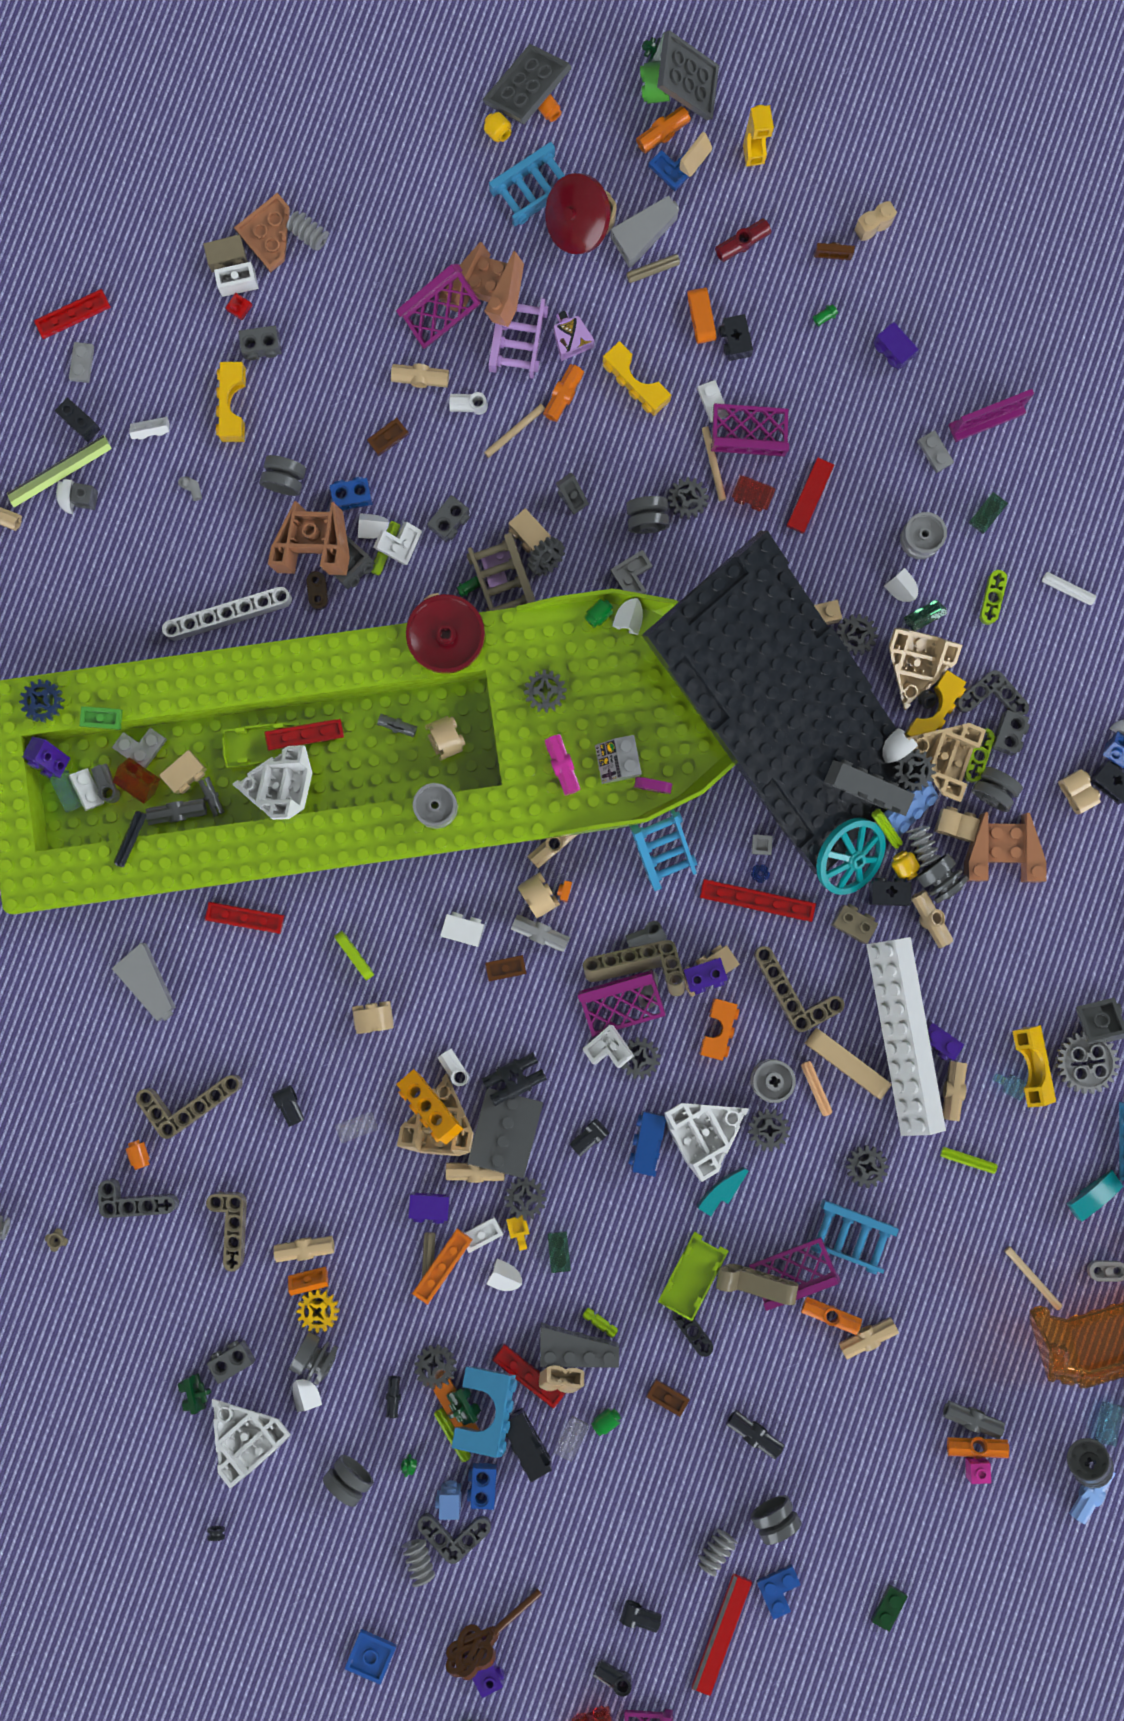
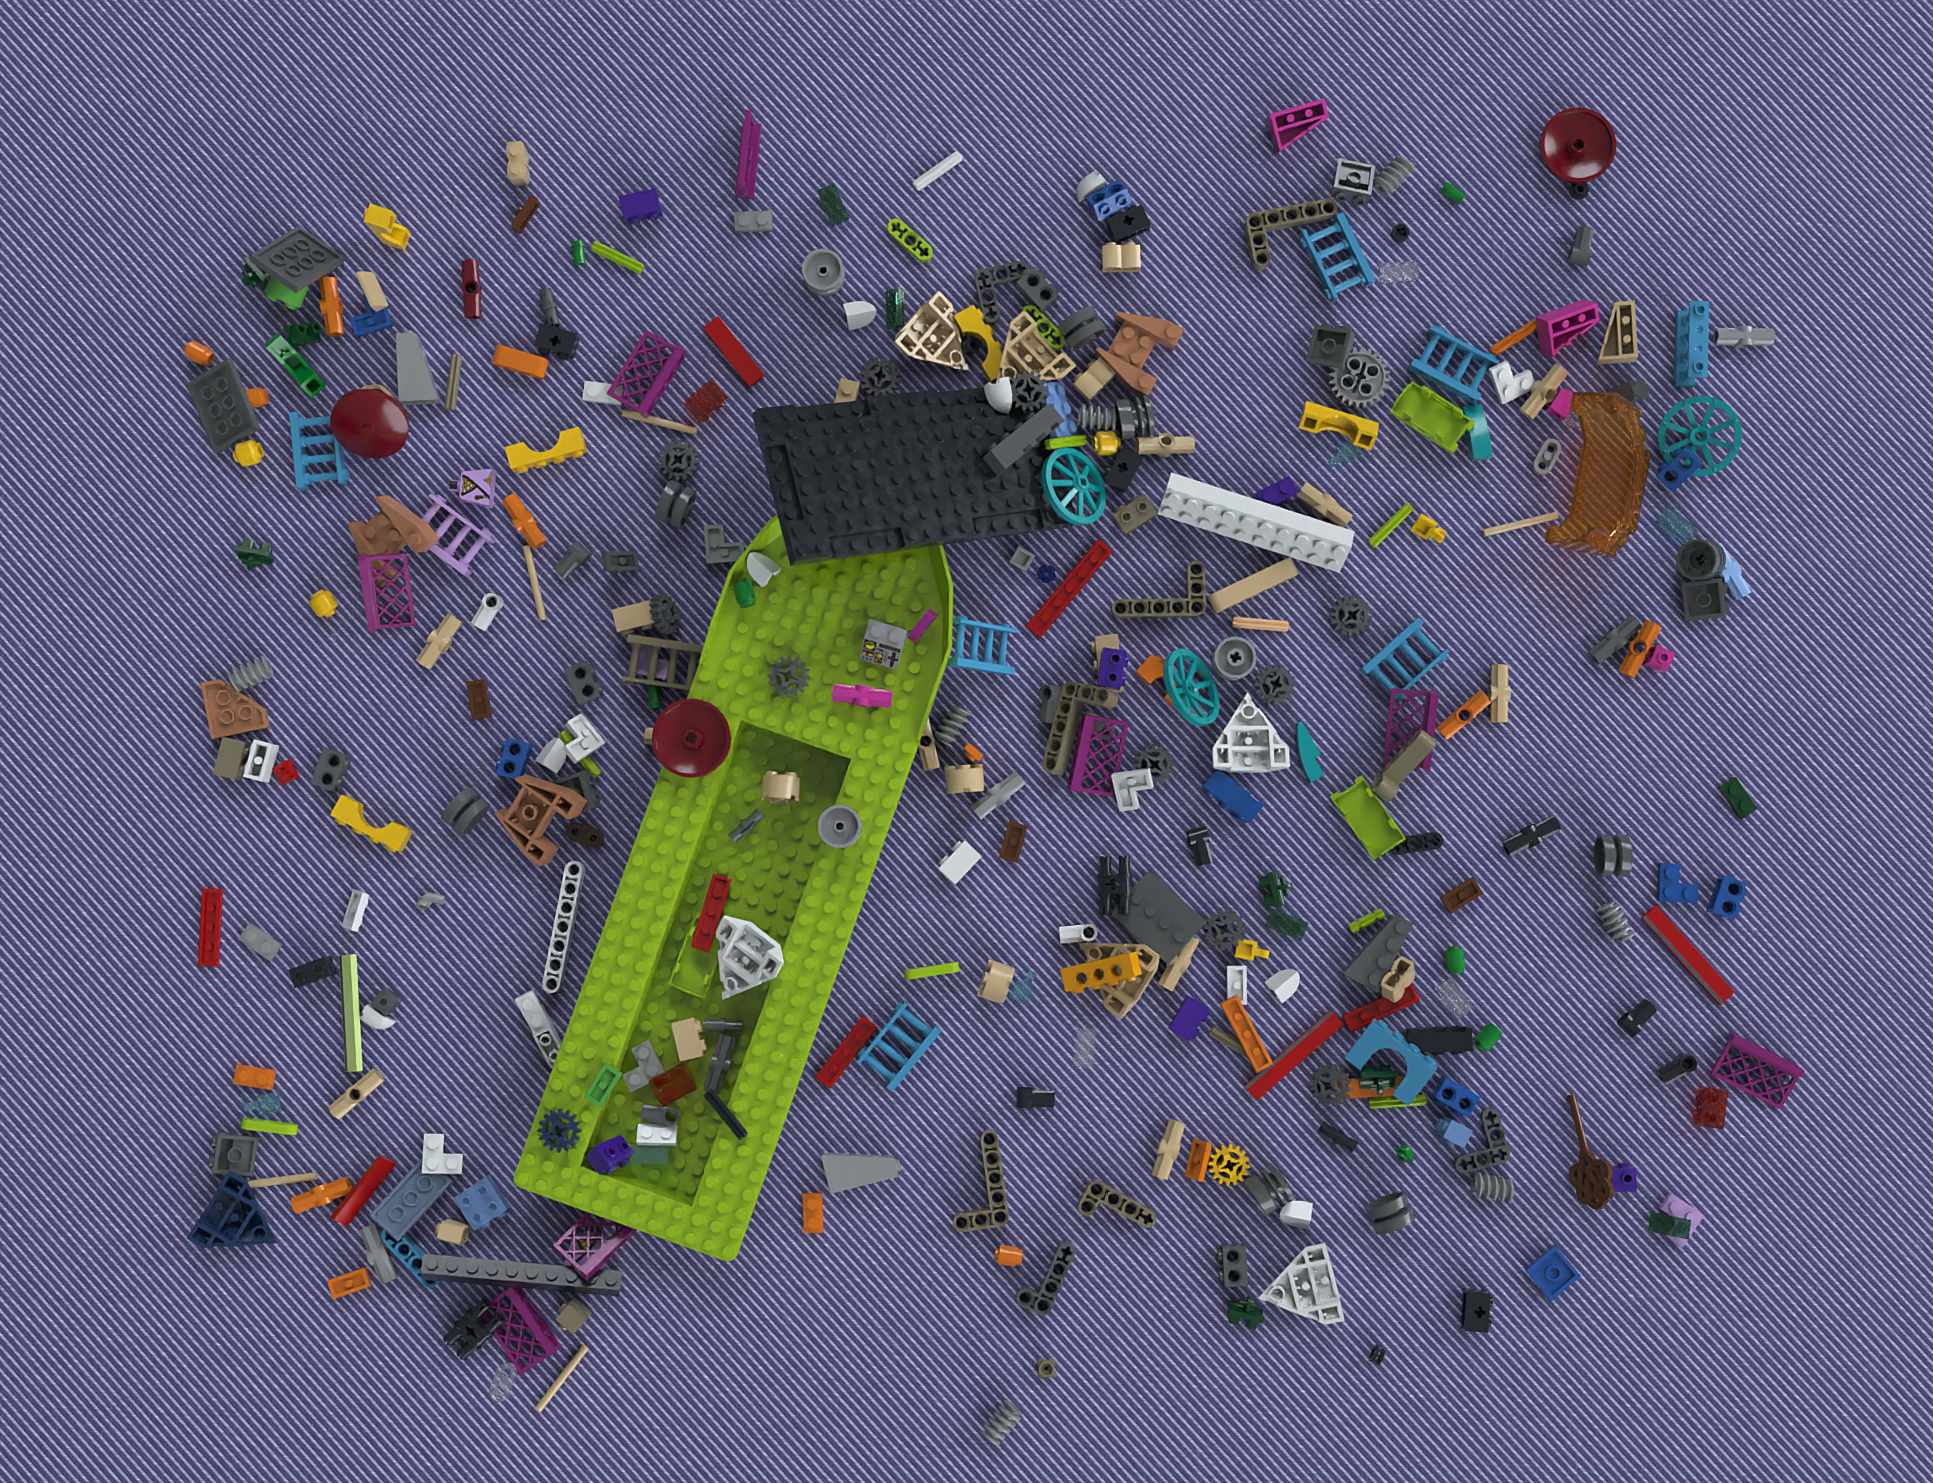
camera: 65 degrees left, 0 degrees up
(89, 962) = (813, 1212): none -> orange plate
(133, 637) = (541, 1025): none -> white slope
(260, 974) = (904, 1063): none -> dark azure fence
(307, 1595) = (1471, 1301): none -> black brick
(378, 1045) = (1022, 990): none -> clear light blue plate
(400, 259) = (323, 603): none -> yellow head
(409, 179) = (254, 557): none -> dark green hips
(446, 1319) = (1294, 1054): none -> red tile
(551, 1488) = (1487, 1037): none -> green brick
(555, 453) = (575, 556): none -> dark grey piece
(562, 40) = (199, 353): none -> orange brick
(578, 1230) = (1271, 880): none -> dark green hips
(580, 860) = (952, 726): none -> light grey piece
(596, 126) = (295, 364): none -> green arch
(625, 116) = (303, 333): none -> dark green hips
(723, 1052) = (1188, 690): none -> teal wheel
(763, 315) = (549, 307): none -> dark grey pin
(792, 1638) = (1721, 895): none -> blue brick
(839, 350) = (617, 257): none -> lime axle
(984, 1193) = (1426, 527): none -> yellow plate
(1054, 1485) = (1705, 600): none -> dark grey plate
(1088, 1146) = (1431, 416): none -> lime piece

